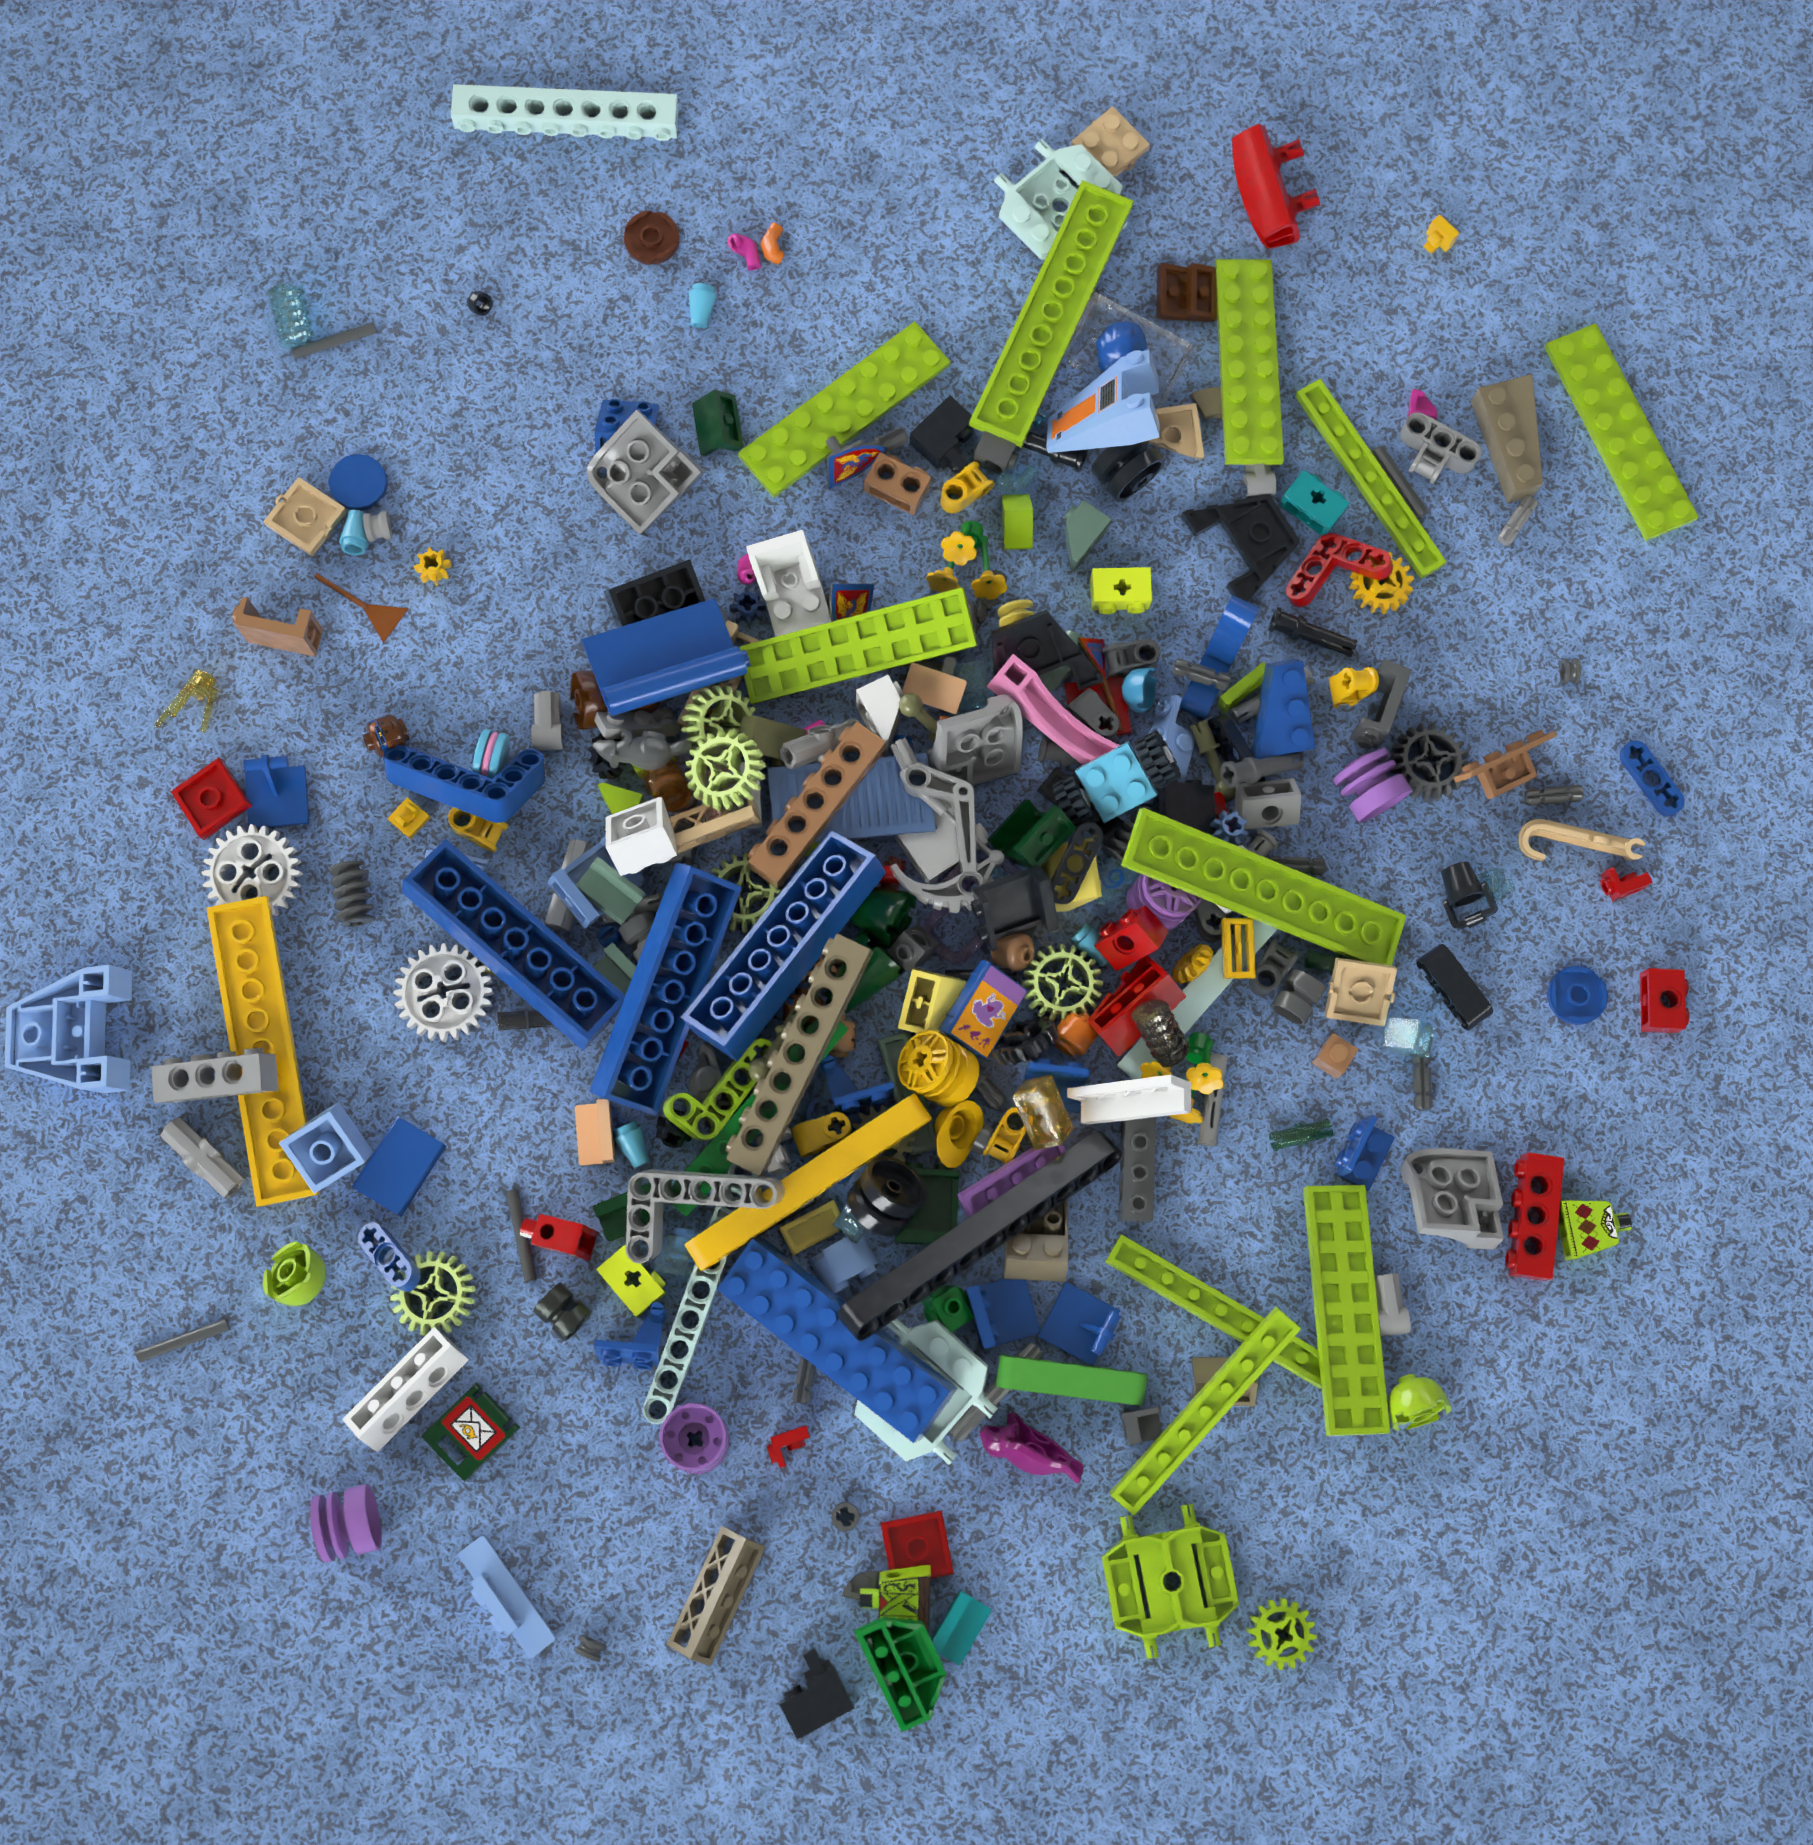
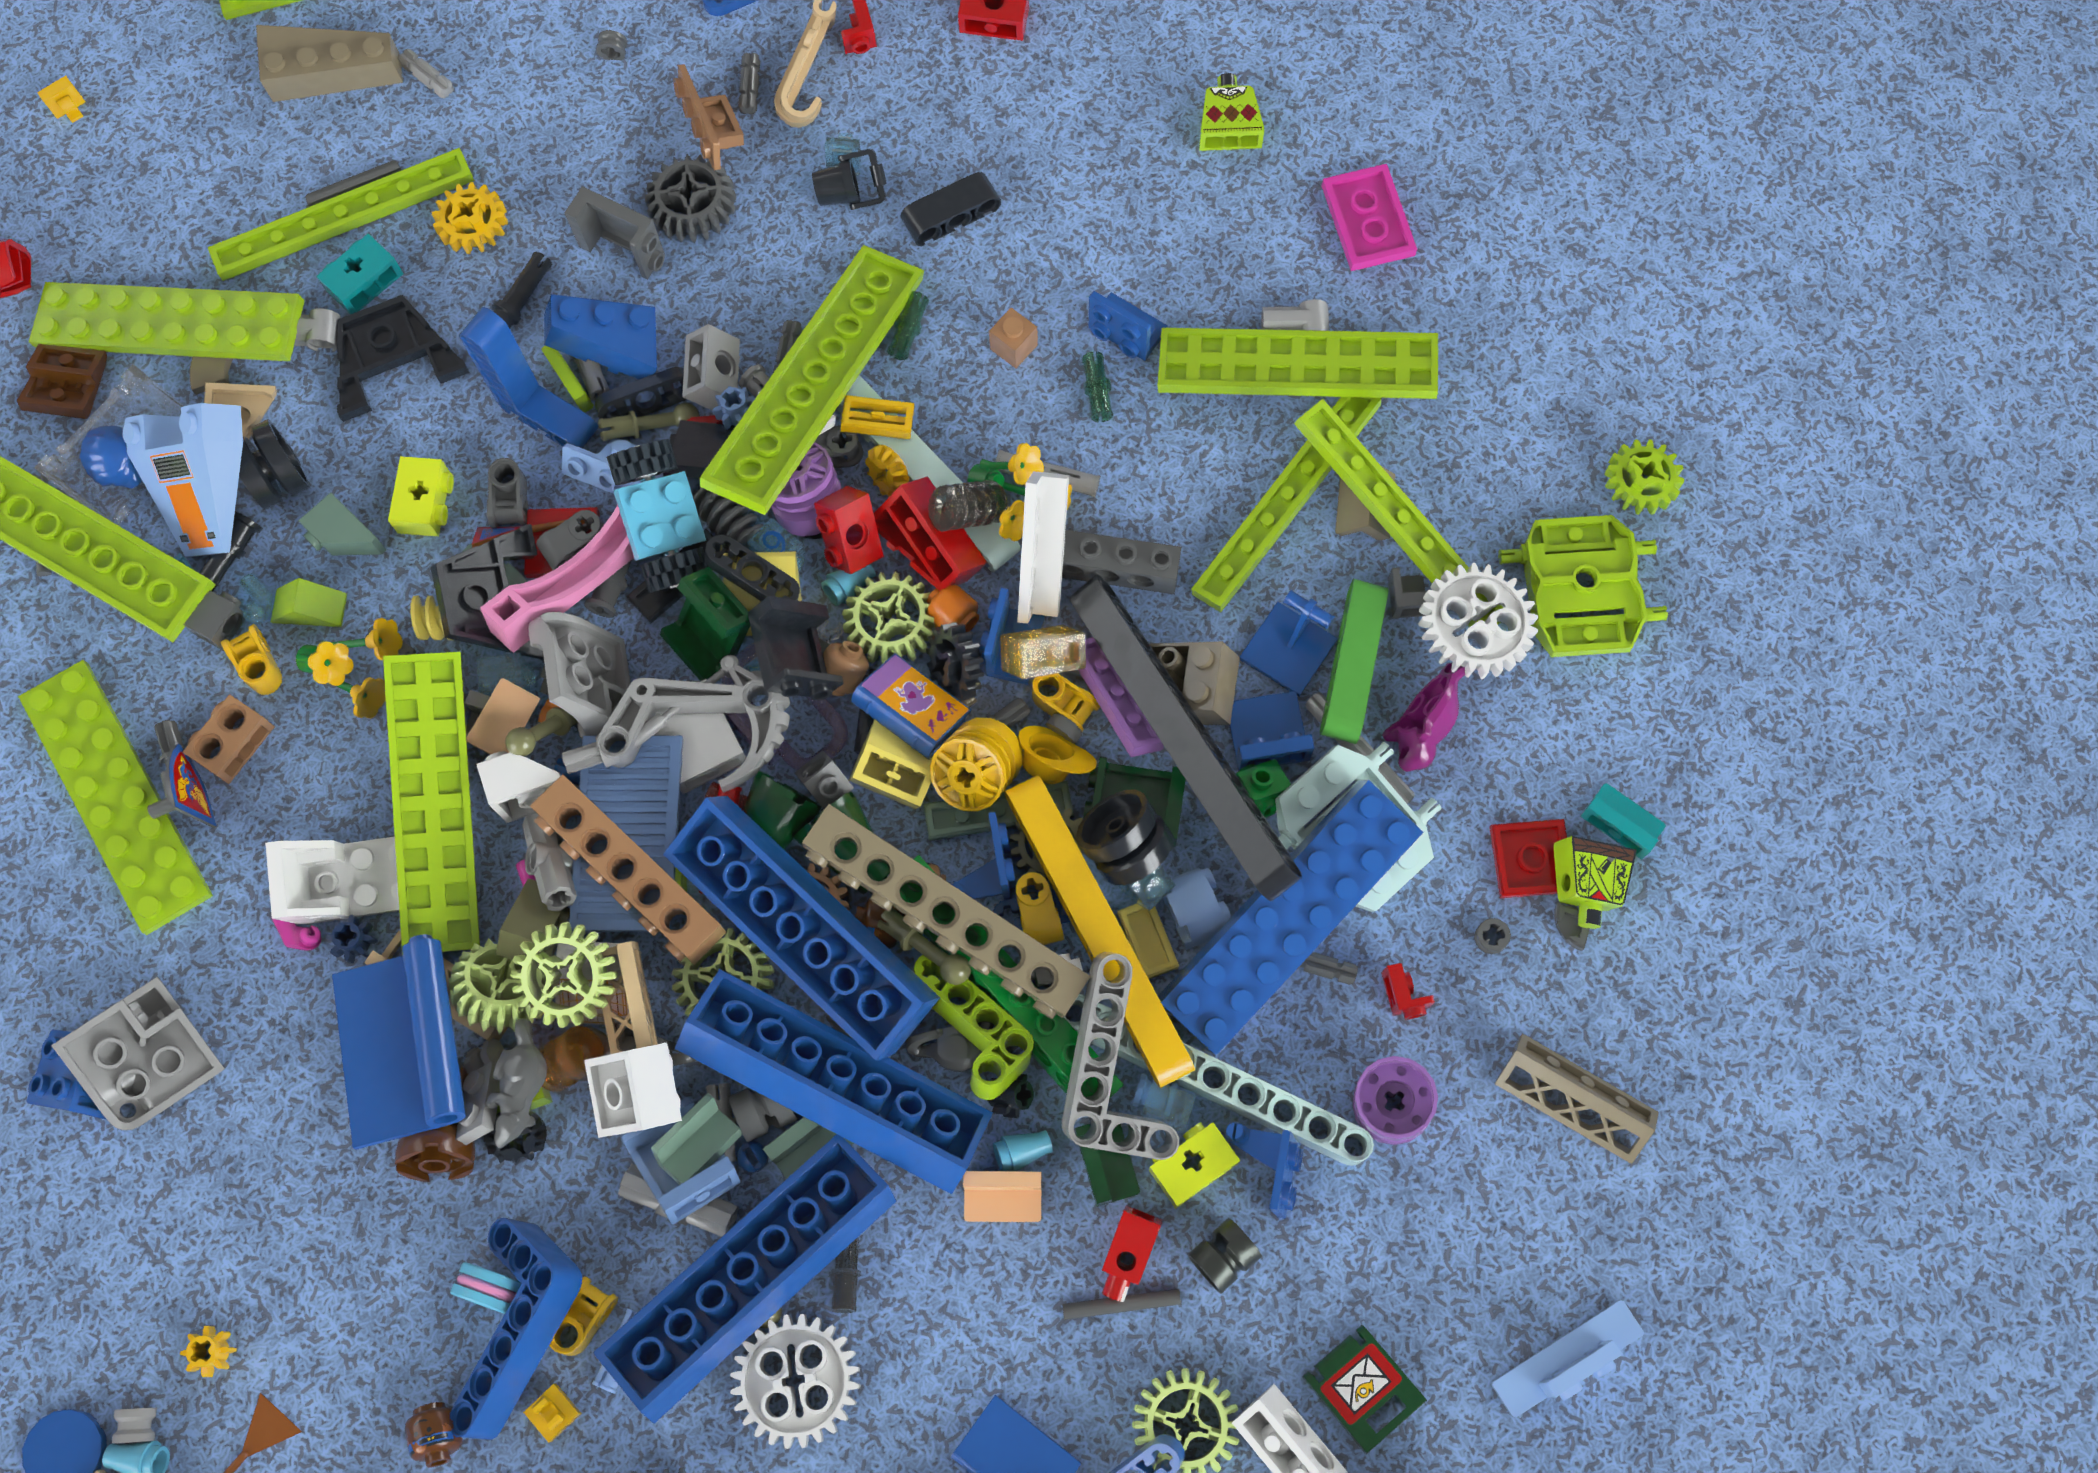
camera: 75 degrees left, 5 degrees down
(547, 724) = (461, 1213): light grey piece -> none
(589, 1648) = (1634, 1257): dark grey bush -> none
(619, 798) = (576, 1126): lime slope -> none
(655, 594) = (310, 1053): black wedge -> none
(717, 422) = (94, 955): dark green panel -> none
(820, 1701) = (1704, 986): black hinge -> none
(849, 600) = (370, 811): shield -> none
(904, 1667) = (1674, 879): green wedge -> none
(940, 435) = (177, 679): black hinge -> none
(1138, 1466) = (1497, 646): none -> white gear
(1139, 689) = (548, 491): dark azure hair -> none
(1201, 674) = (543, 414): dark grey axle -> none
(1251, 769) = (669, 373): dark grey pin -> none
(1275, 965) = (902, 385): dark grey piece -> none
(1299, 994) = (937, 364): dark grey wheel -> none
(1335, 557) = (430, 257): red beam -> none
(1352, 685) = (587, 260): yellow piece -> none
(1360, 991) = (944, 301): tan plate -> none
(1372, 785) = (708, 254): medium lavender wheel -> none
(1408, 1037) = (1002, 260): clear light blue brick -> none
(1416, 1402) = (1402, 304): lime cylinder -> none
(1421, 404) = (268, 152): dark pink tile -> none
(1422, 1083) = (1050, 257): dark grey axle -> none
(1433, 457) = (320, 137): light grey piece -> none
(1455, 1195) = (1182, 236): light grey slope -> none
(1506, 1364) = (1369, 217): none -> dark pink plate
(1549, 1173) = (1203, 152): red brick -> none
(1577, 995) = (980, 102): blue tile -> none

